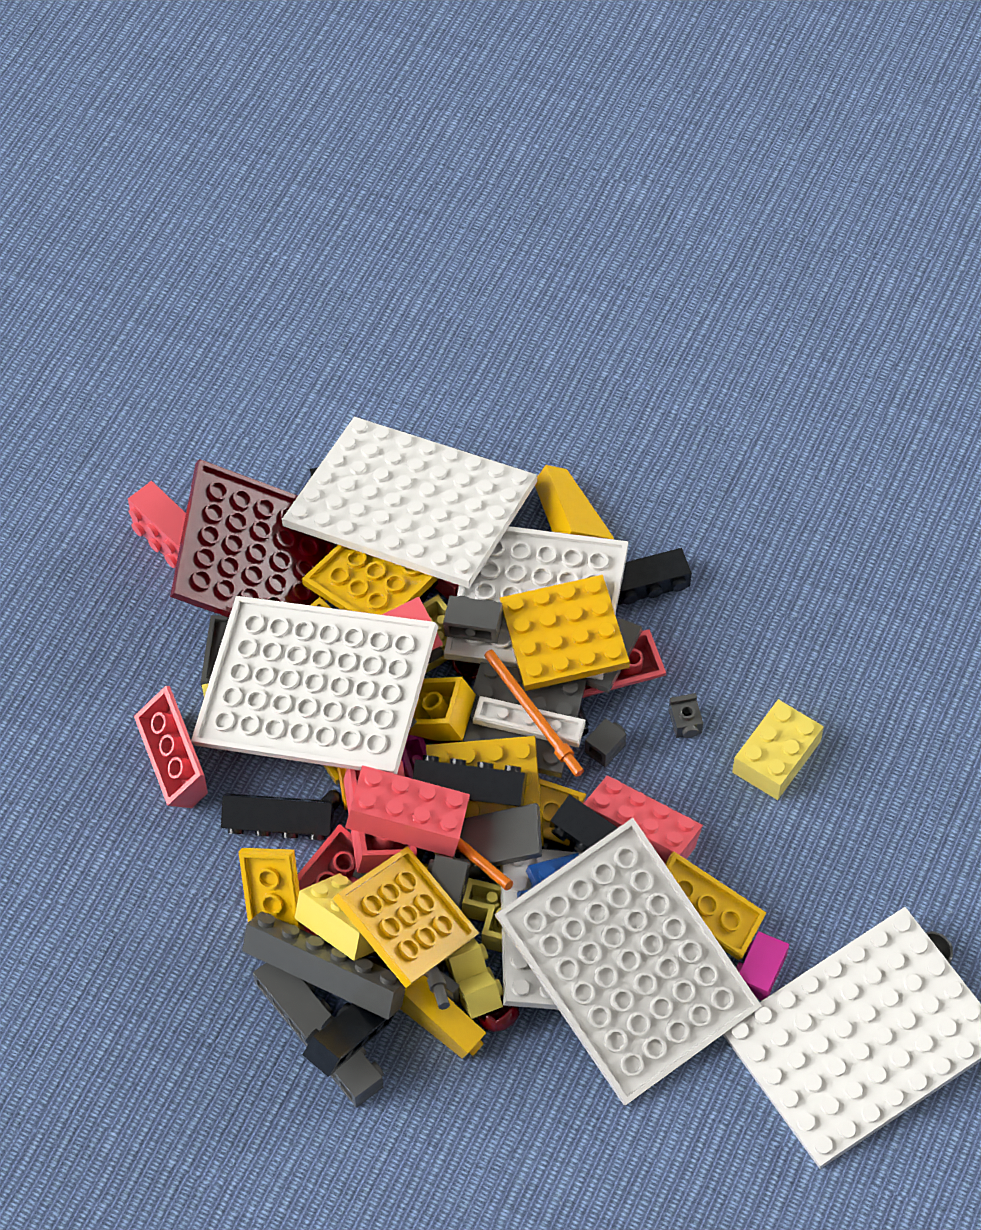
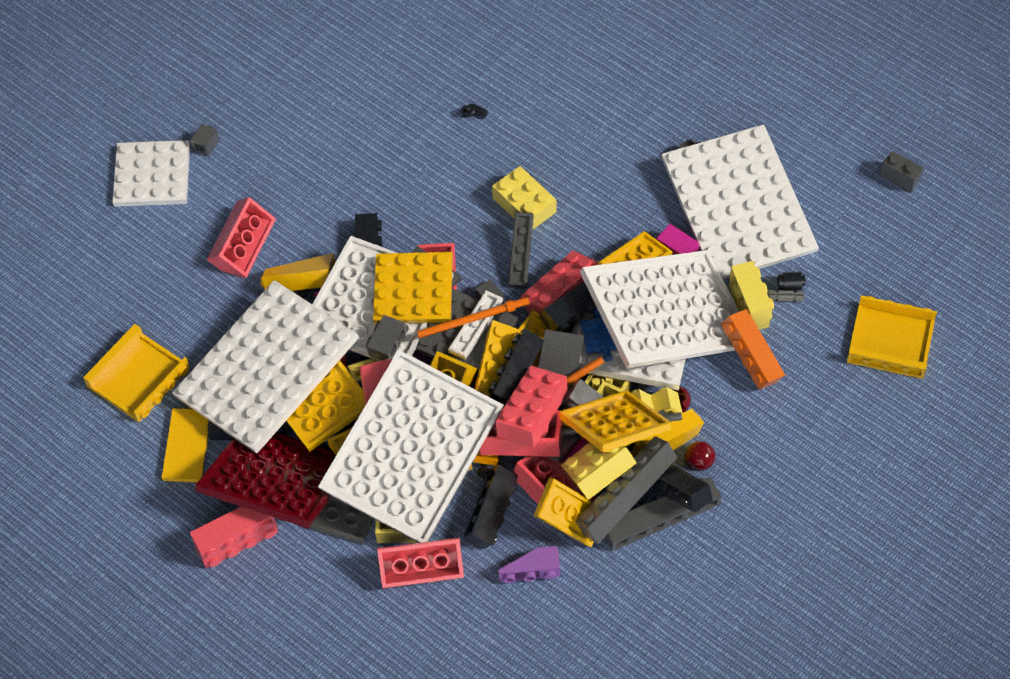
camera: 75 degrees left, 0 degrees up
(209, 888) = (537, 564): none -> medium lavender slope
(288, 457) = (185, 446): none -> yellow tile
(381, 377) = (136, 374): none -> yellow panel
(422, 1064) = (700, 455): none -> dark red hair
(602, 1095) = (752, 349): none -> orange brick
(610, 434) = (241, 238): none -> coral slope
(684, 311) = (151, 173): none -> white plate
(685, 716) = (483, 245): dark grey brick -> none
(688, 761) = (521, 249): none -> dark grey tile
(695, 1077) = (751, 293): none -> light yellow brick
(722, 1134) = (786, 295): none -> dark grey axle
(747, 1134) = (791, 280): none -> black brick
(752, 352) = (205, 139): none -> dark grey brick
(914, 654) = (473, 109): none -> black arm

